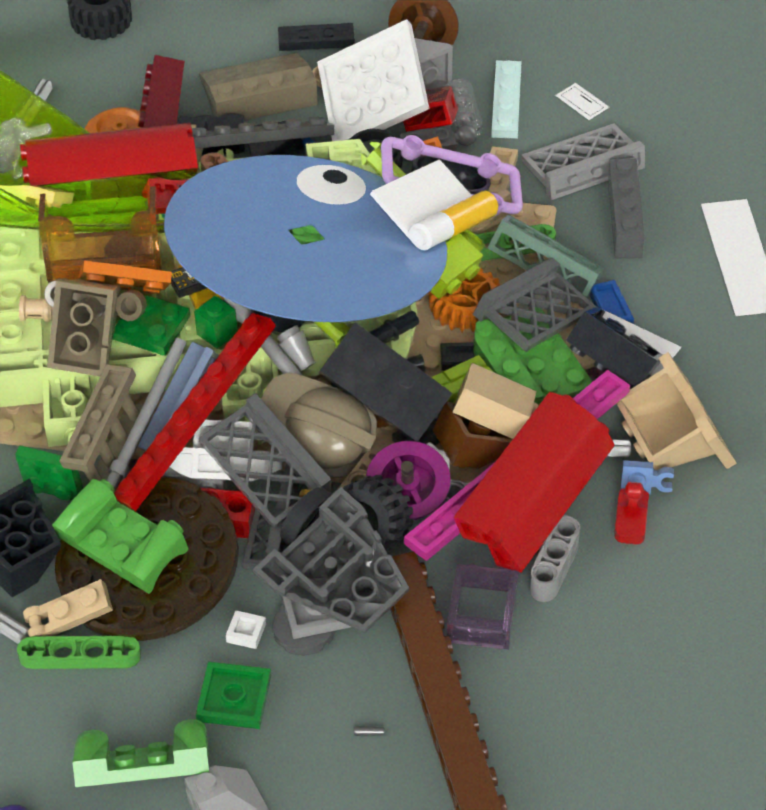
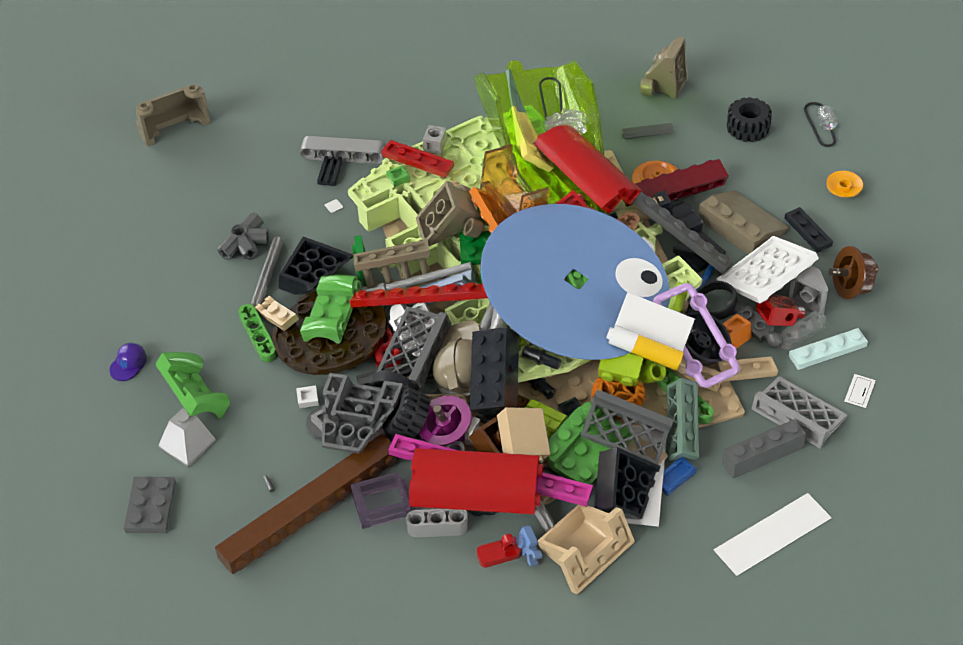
camera: 65 degrees right, 0 degrees up
(233, 695) = (259, 410): green plate -> none

